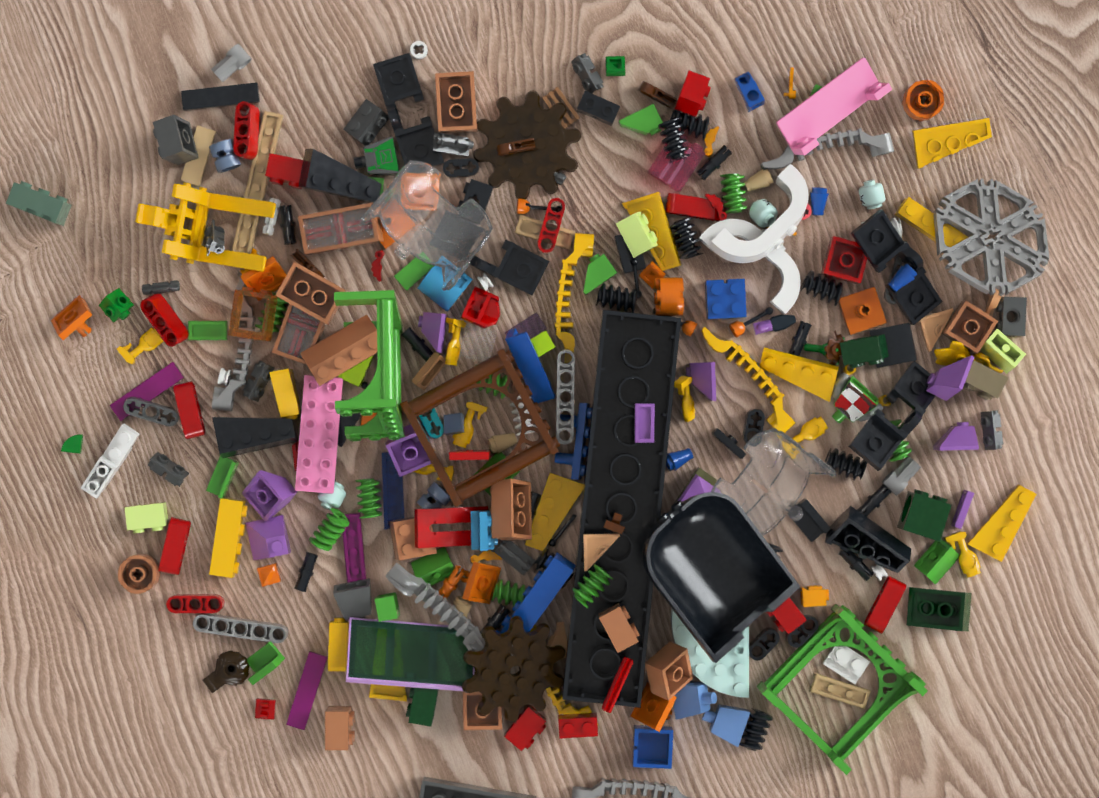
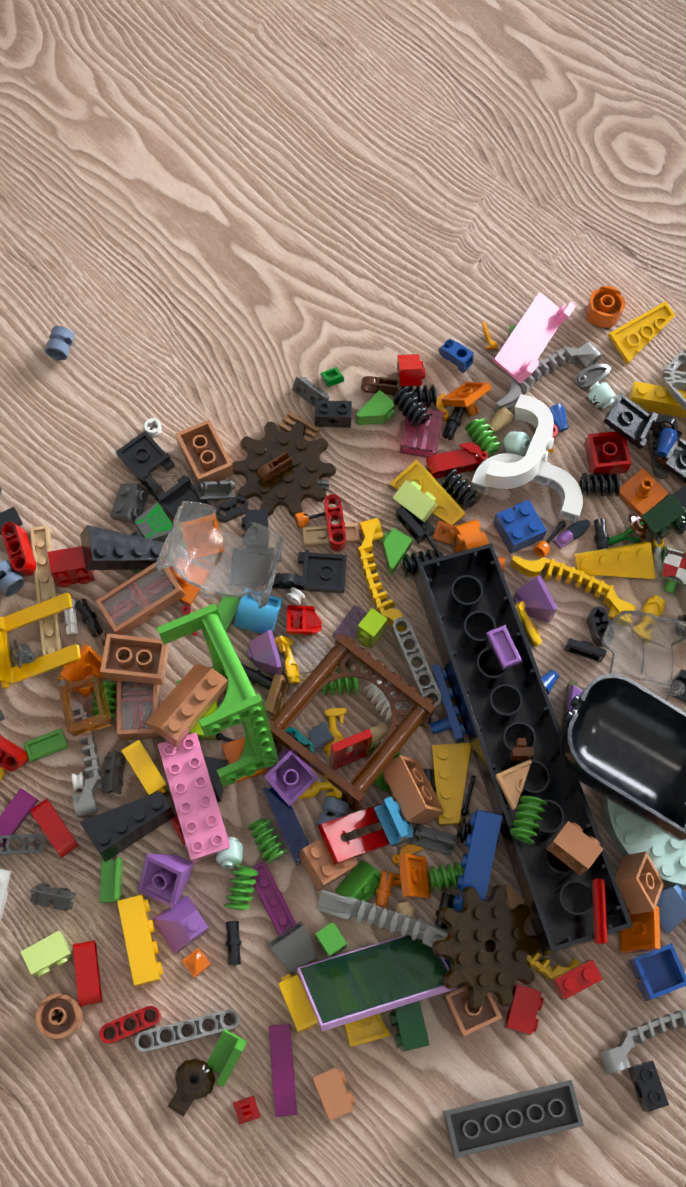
camera: 25 degrees left, 20 degrees down
(530, 366) = (366, 638): blue panel -> none
(736, 143) = (466, 395): none -> orange tile
(874, 168) = (592, 374): none -> flat silver arm

